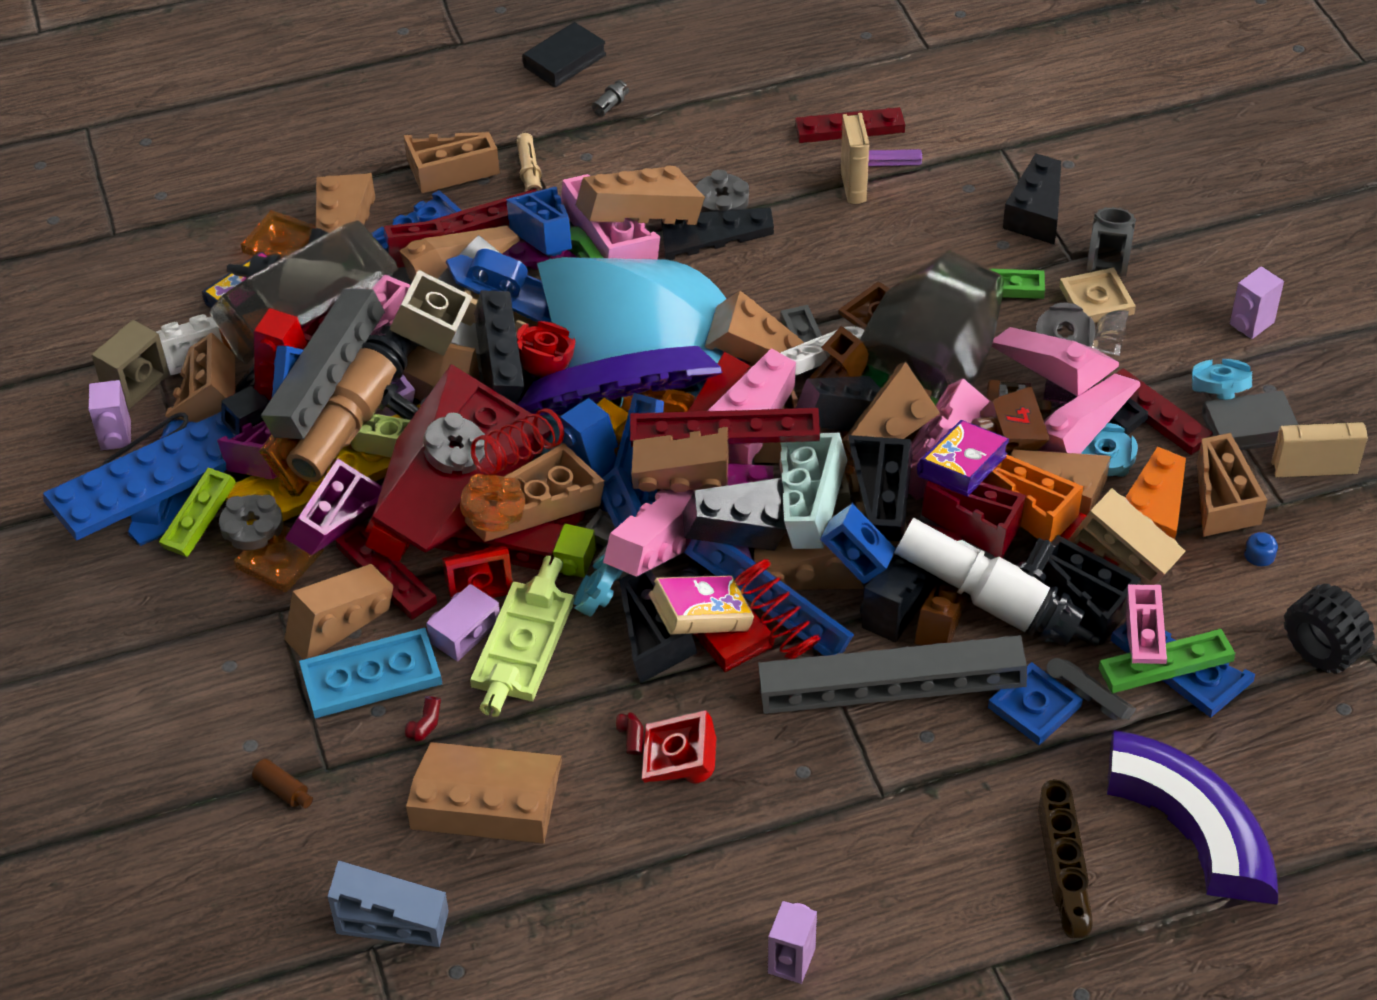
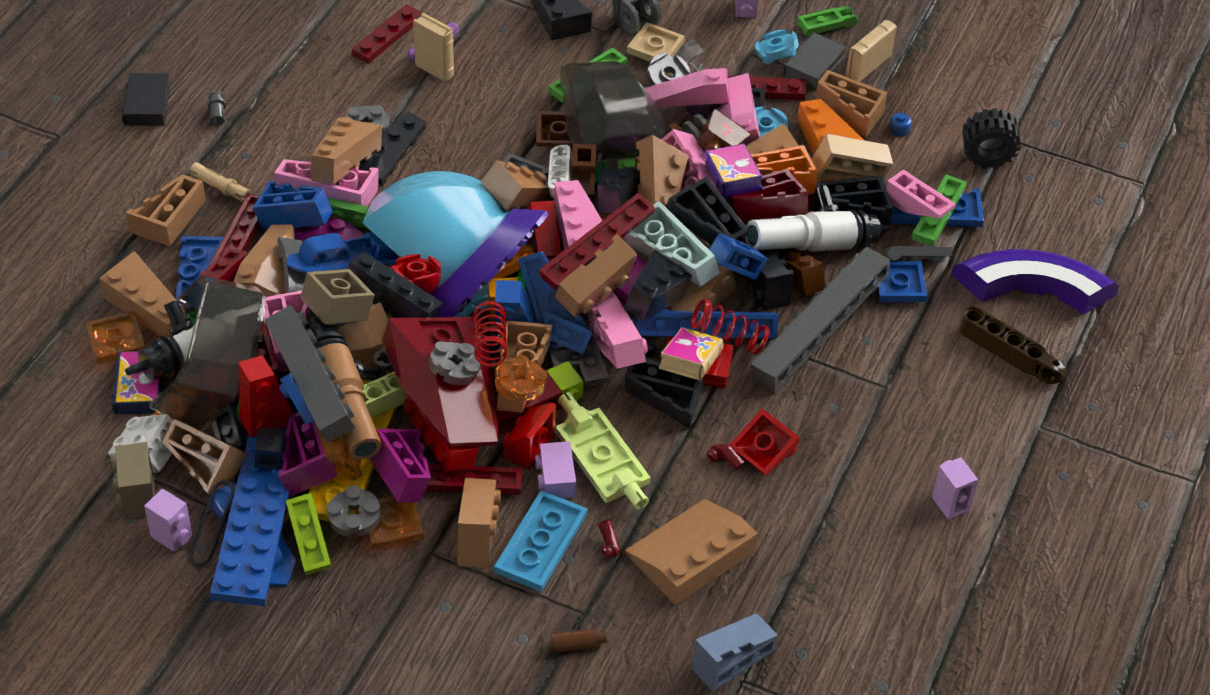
camera: 50 degrees left, 0 degrees up
(596, 588) = (620, 389): medium azure plate -> none
(1324, 389) = (827, 20): none -> bright green hinge

